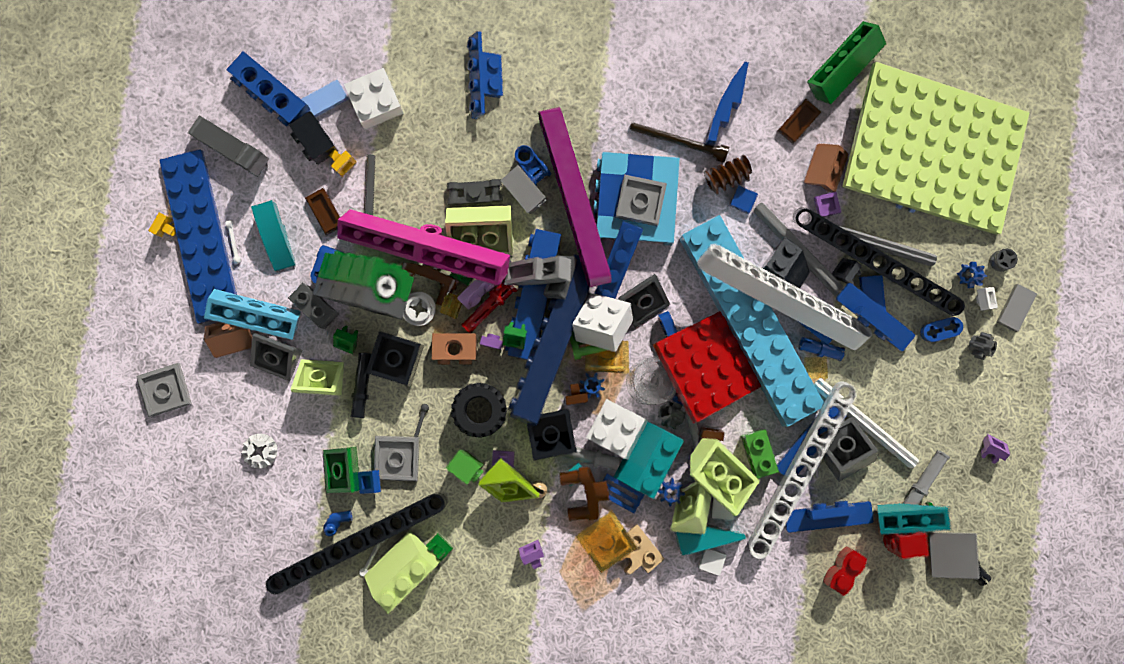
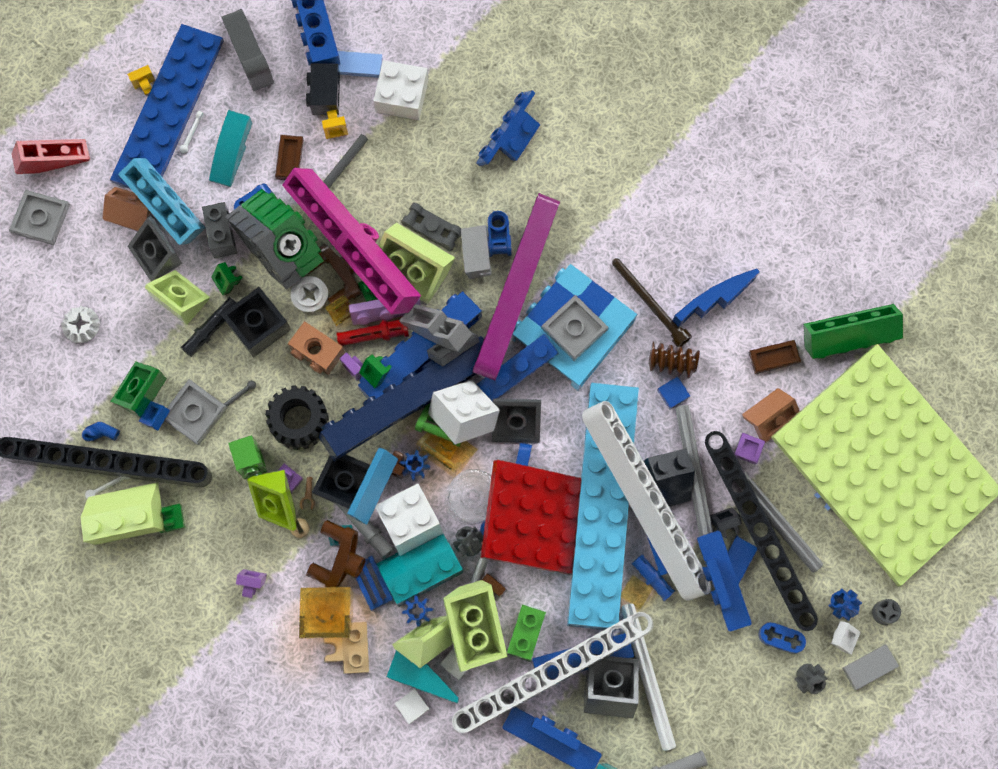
camera: 35 degrees right, 10 degrees down
(134, 336) = (48, 155): none -> red slope
(528, 462) = (308, 494): none -> medium nougat hand
(575, 425) = (372, 486): none -> dark azure tile

